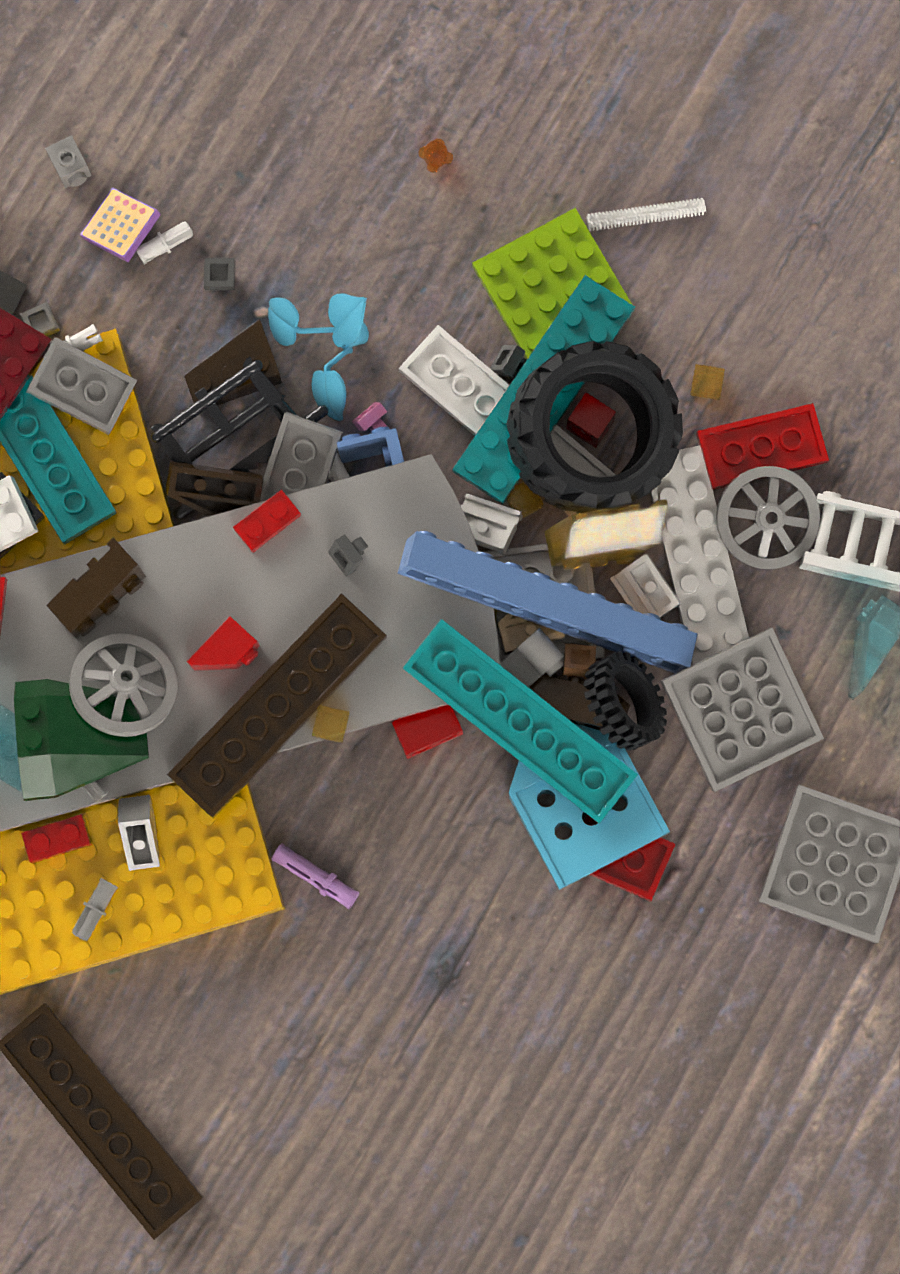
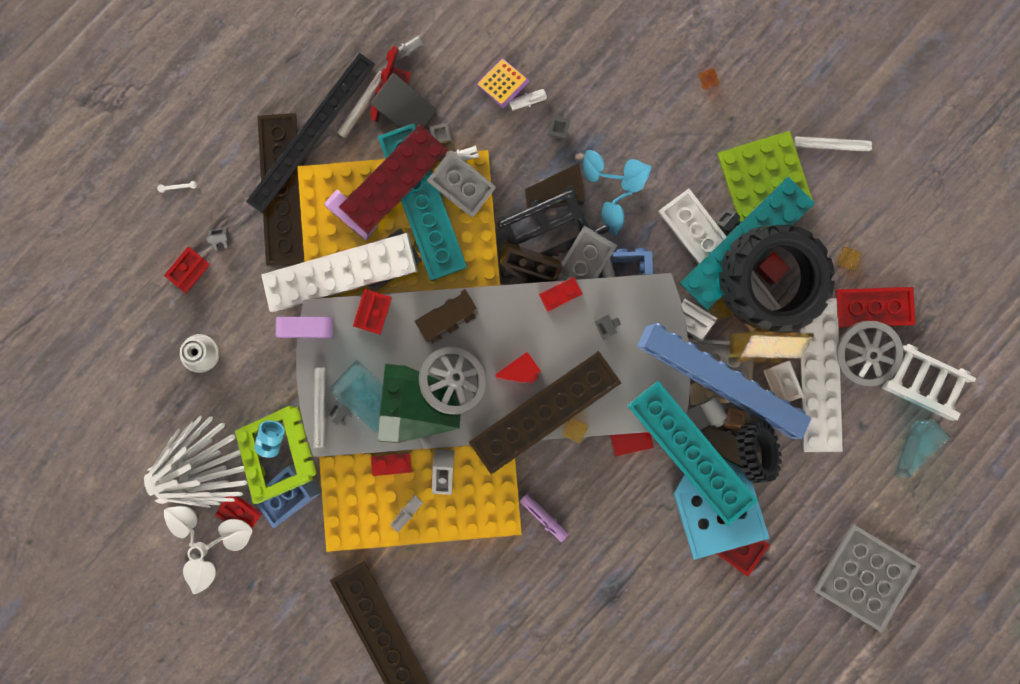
camera: 10 degrees right, 5 degrees up
(68, 162) = (478, 36): light grey brick -> none
(370, 417) = (635, 239): bright pink tile -> none
(742, 709) = (829, 470): light grey plate -> none

